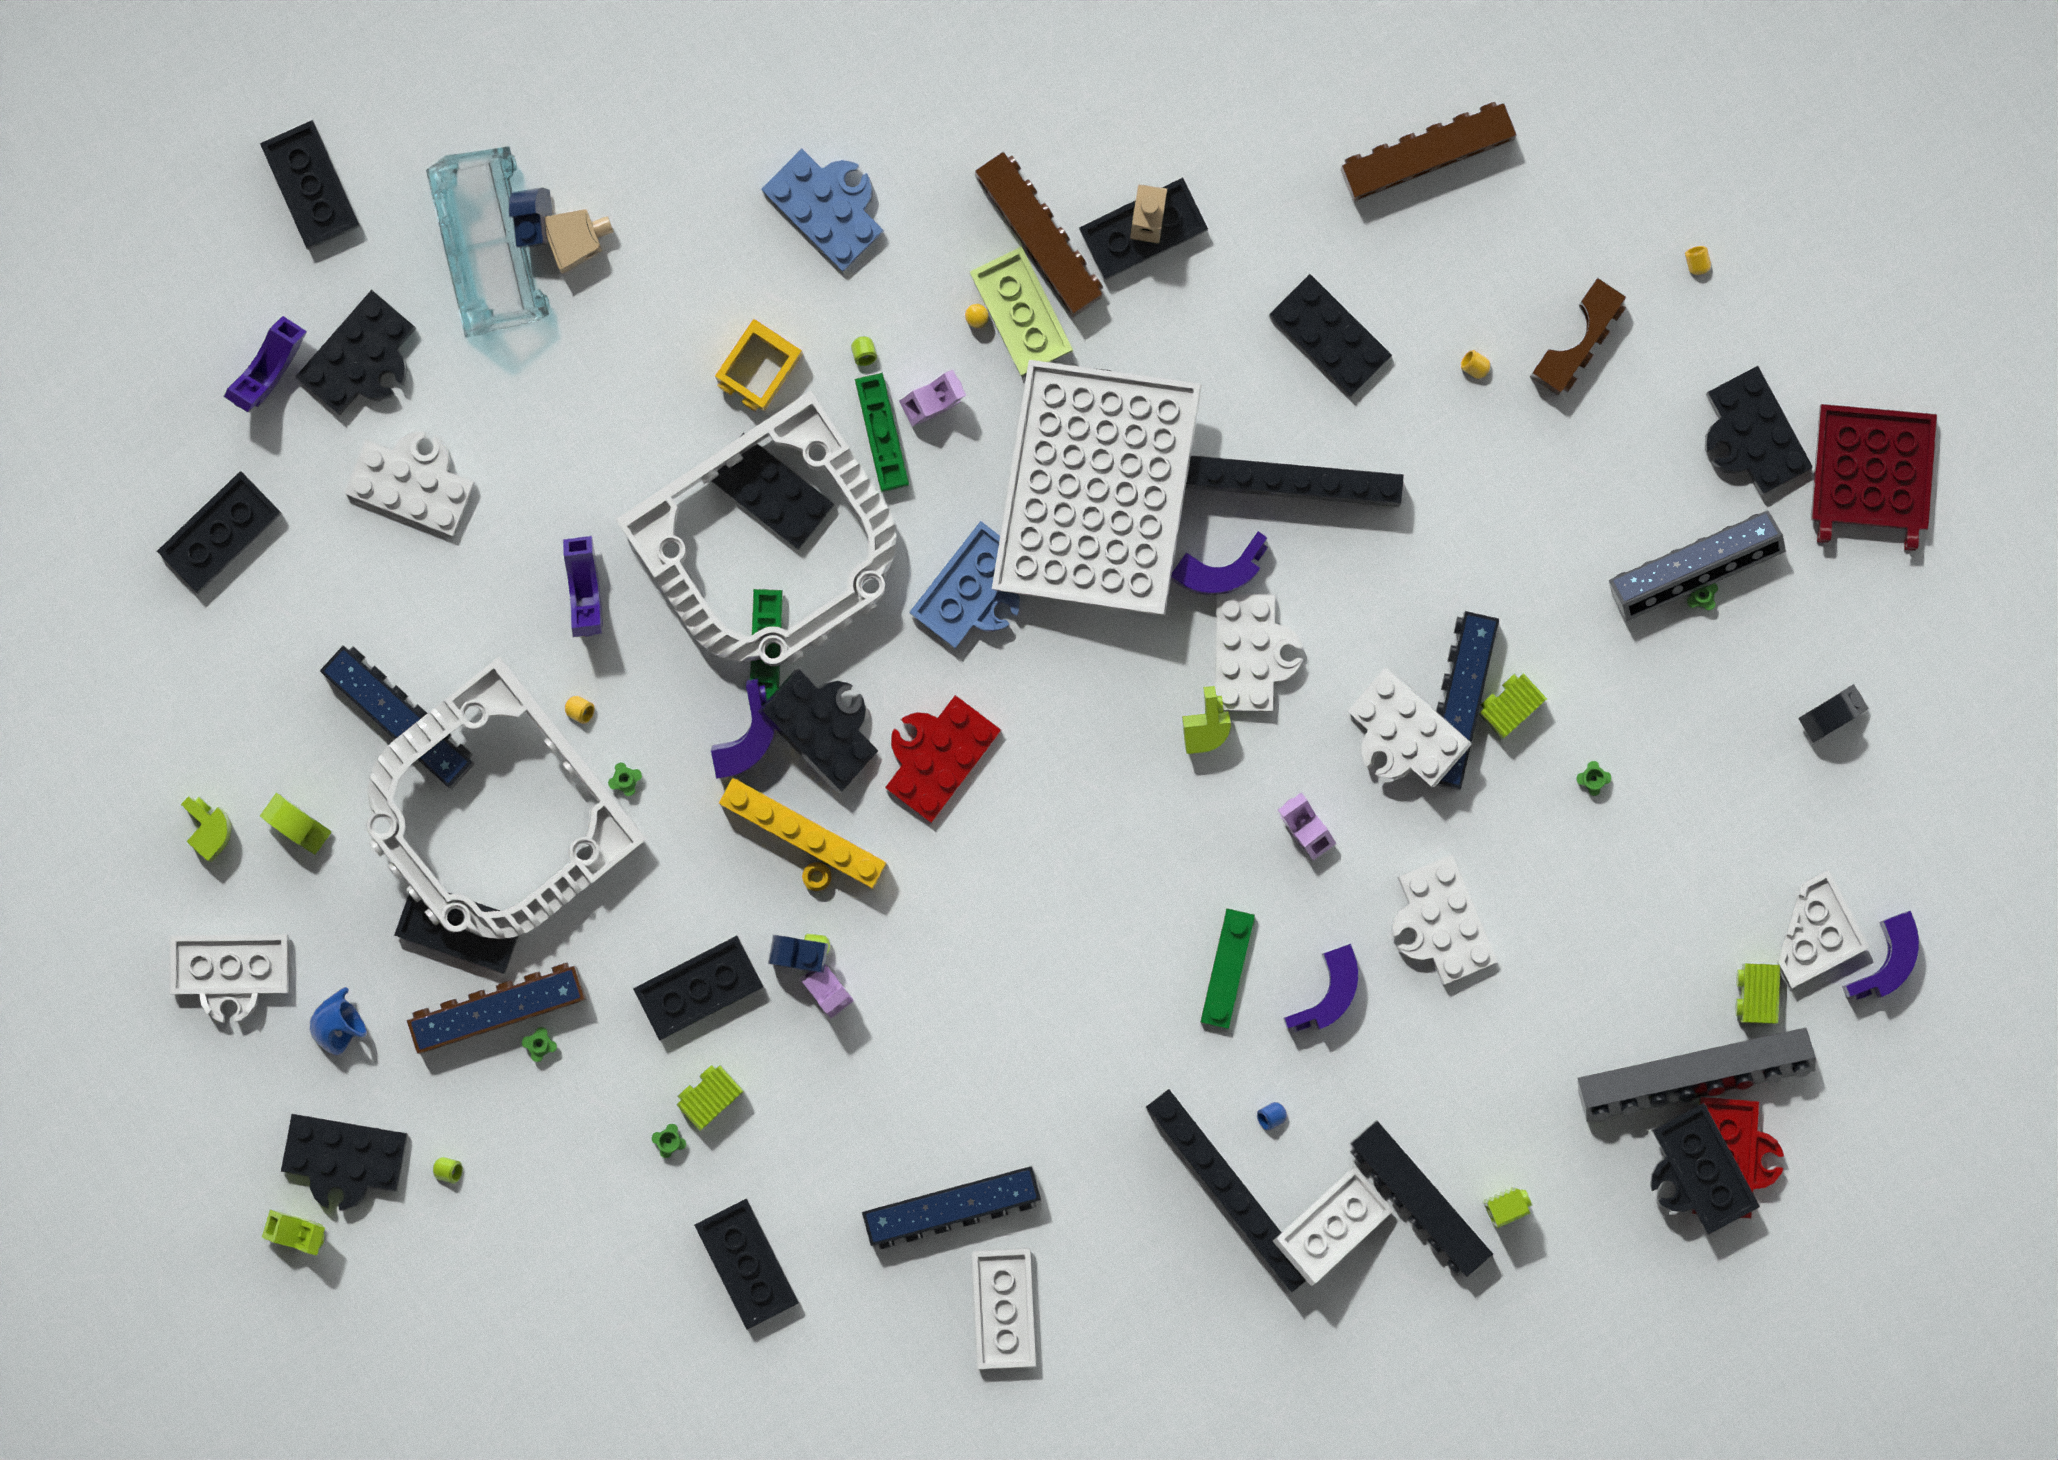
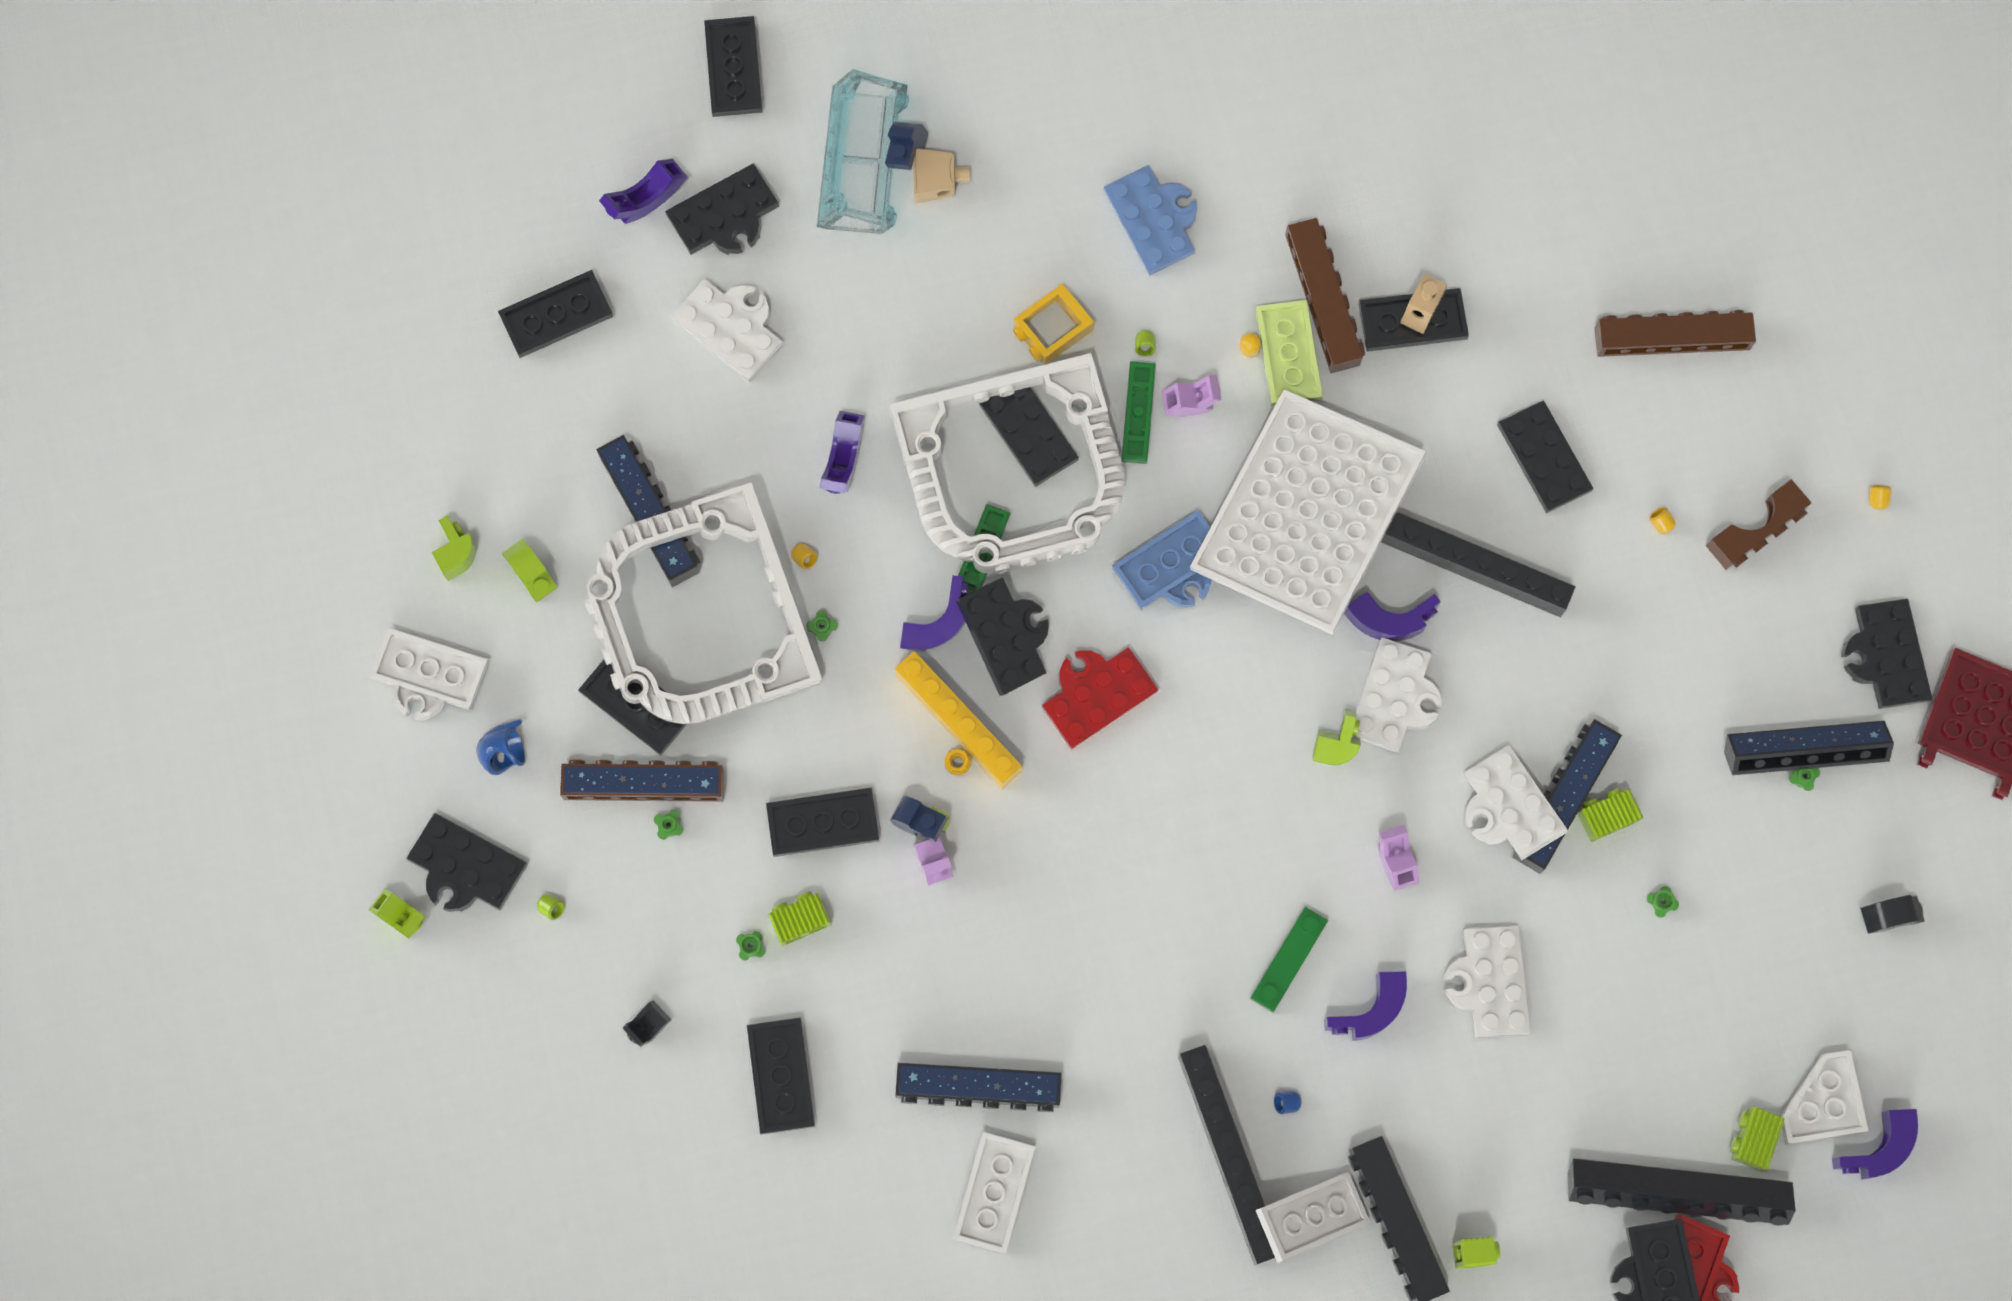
camera: 15 degrees right, 10 degrees down
(591, 1258) = (647, 1024): none -> black bracket

